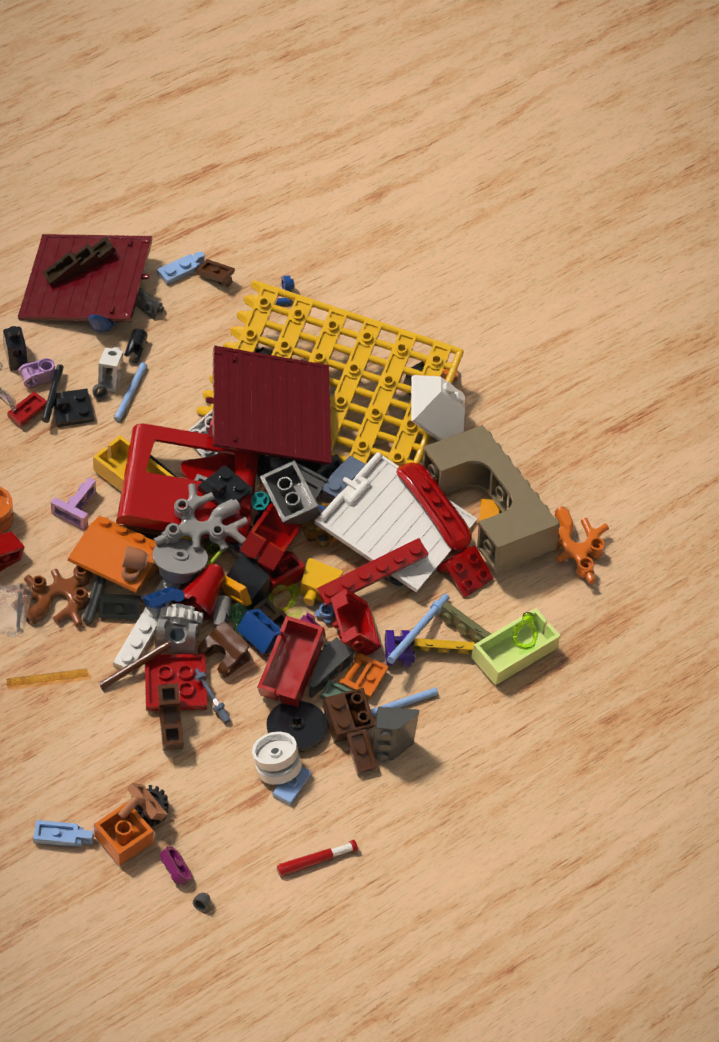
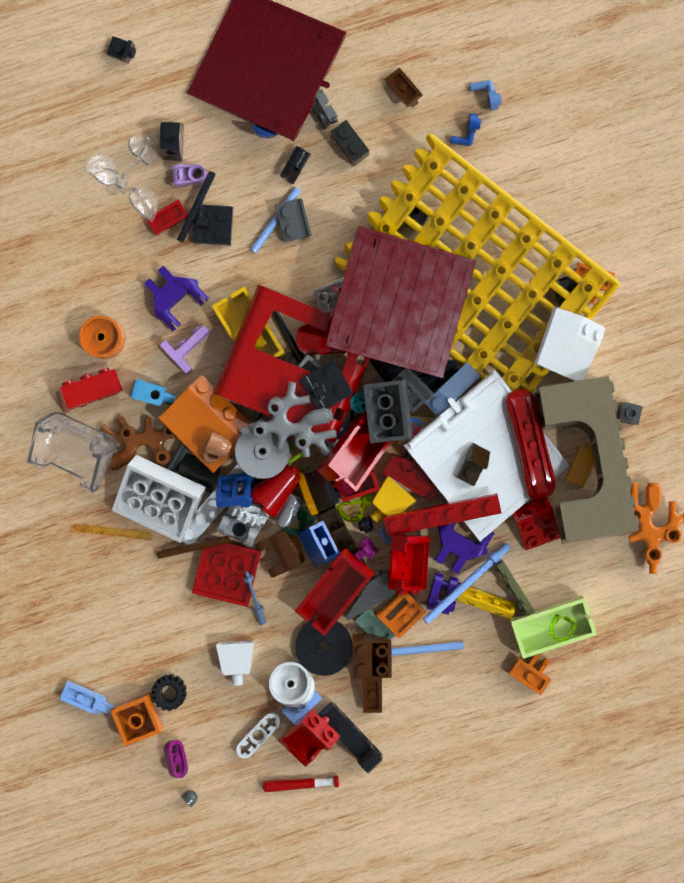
camera: 25 degrees right, 35 degrees up
(48, 465) = (171, 294): none -> dark purple connector
(51, 544) = (142, 392): none -> dark azure torso
(74, 264) = (263, 45): dark brown slope -> none
(86, 628) = (158, 498): none -> white slope
(103, 392) = (244, 213): dark grey hinge -> none
(110, 361) = (261, 190): white torso -> none
(143, 797) = (162, 702): nougat plate -> none
(147, 386) = (293, 220): none -> dark grey plate
(170, 716) = (208, 619): reddish brown arch -> none
(181, 267) = (370, 69): light blue hinge -> none
(181, 319) = (350, 143): none -> pearl dark grey brick
(209, 755) = (235, 659): none -> white torso
(256, 815) = (245, 741): none -> white beam
(298, 264) = (494, 99): none -> medium blue plate
(300, 609) = (365, 524): none -> black plate
(310, 797) = (308, 737): none -> red piece
(338, 557) = (412, 477): none -> red wing
(354, 797) = (352, 737): none -> black beam
(386, 527) = (474, 463): none -> dark brown slope
(393, 732) = (403, 696): dark grey slope -> none
(398, 603) = (460, 546): none -> dark purple connector
(512, 699) = (529, 675): none -> orange hinge
(517, 458) = (629, 413): none -> dark grey brick

